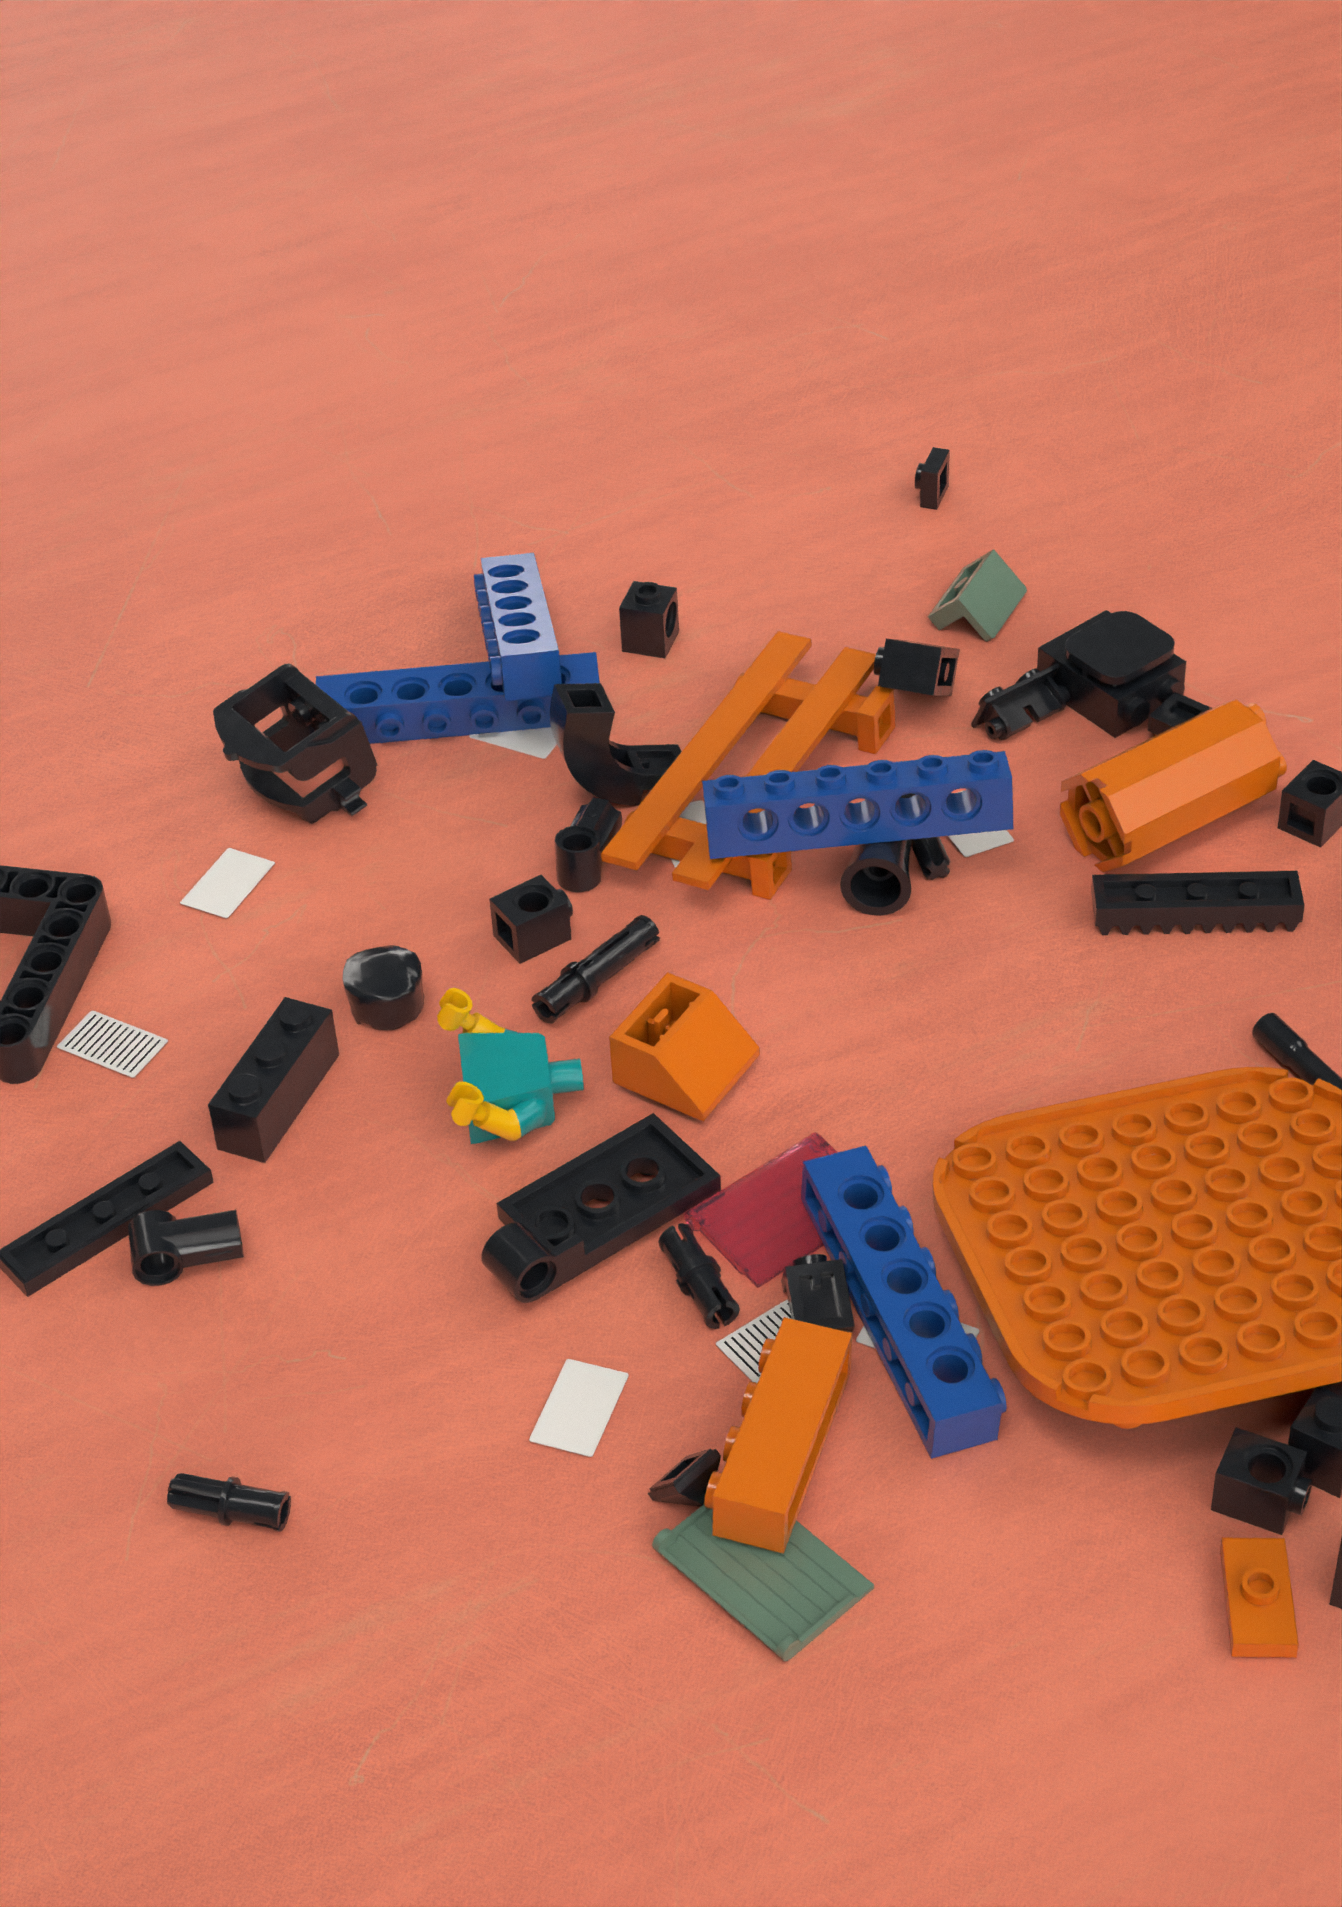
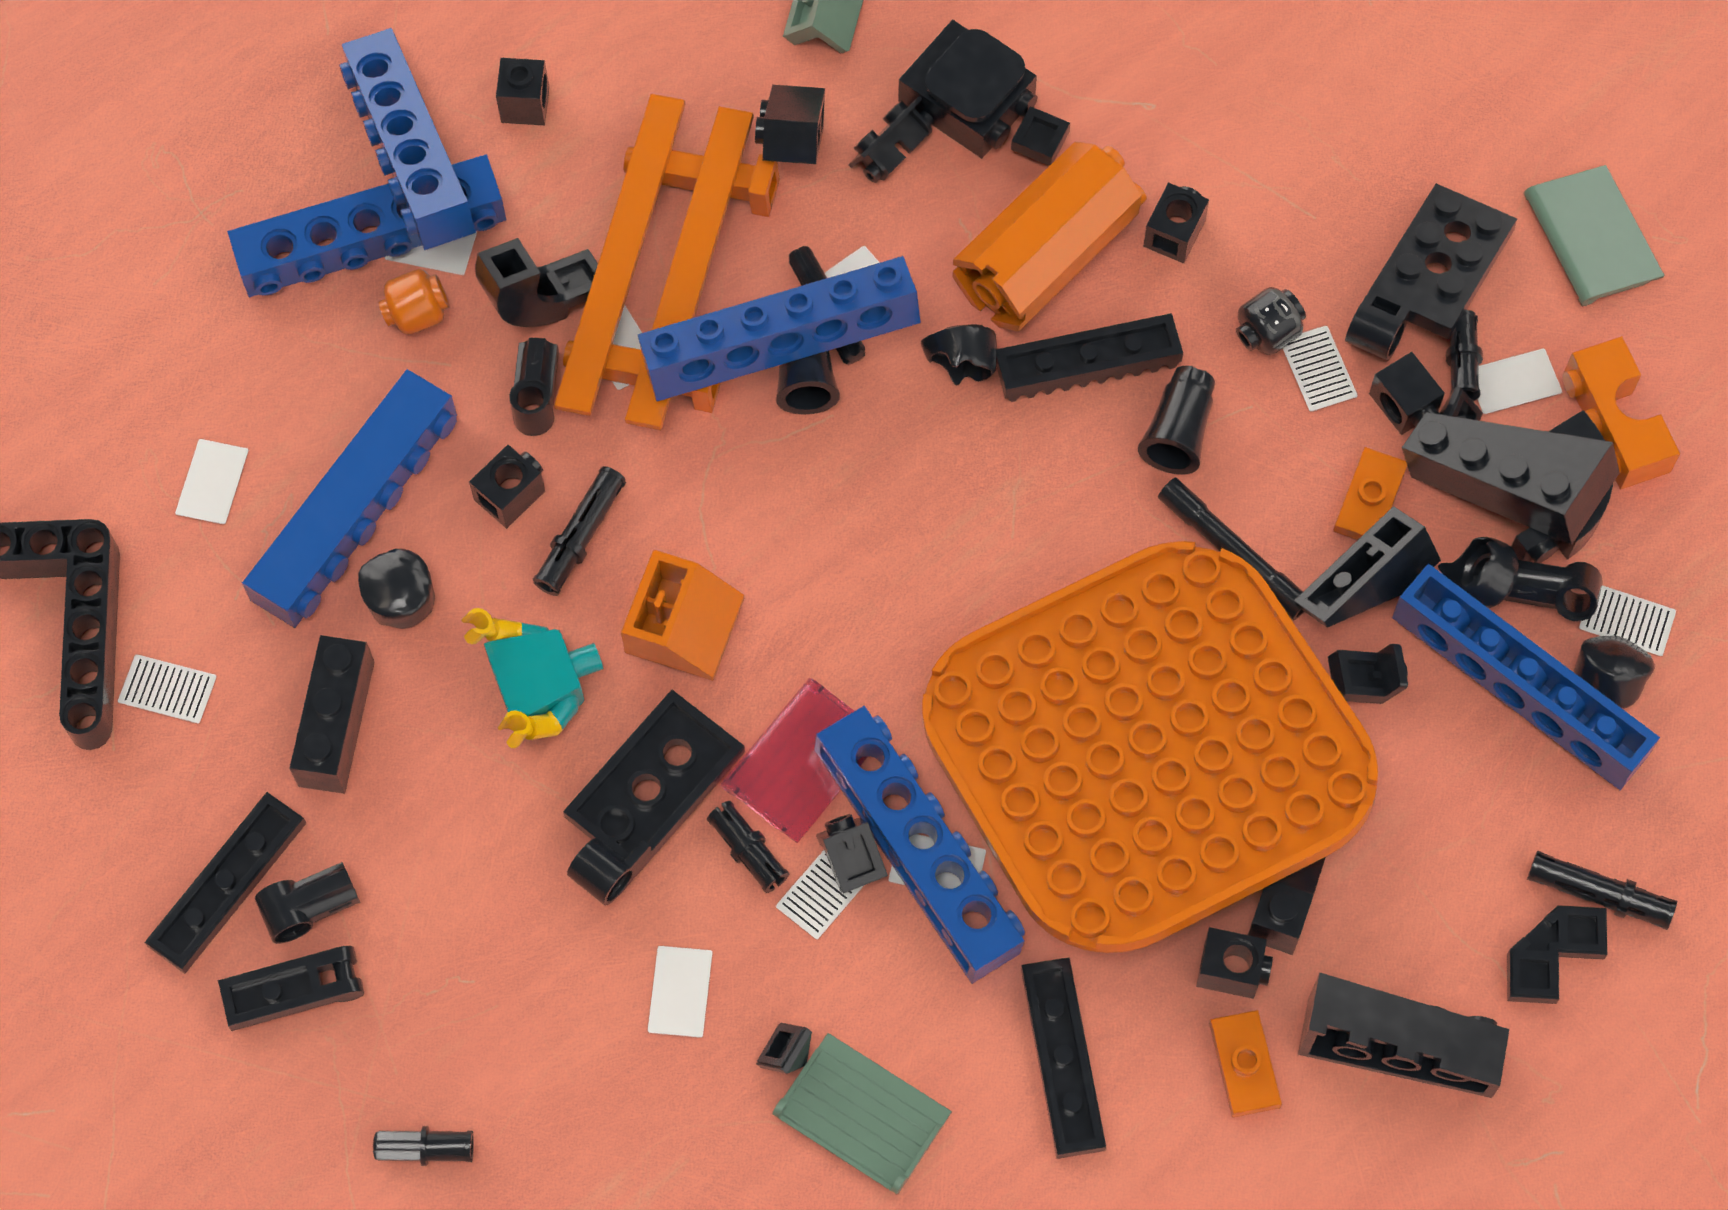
camera: 15 degrees left, 25 degrees up
(136, 1320) = (289, 987): none -> black plate
(295, 744) = (274, 353): black animal -> none
(360, 907) = (351, 499): none -> blue brick
(484, 760) = (414, 301): none -> orange head
(780, 1435) = (853, 997): orange brick -> none
(1027, 1554) = (1063, 1058): none -> black tile
(1055, 869) = (963, 351): none -> black hair
(1287, 967) = (1179, 423): none -> black plant

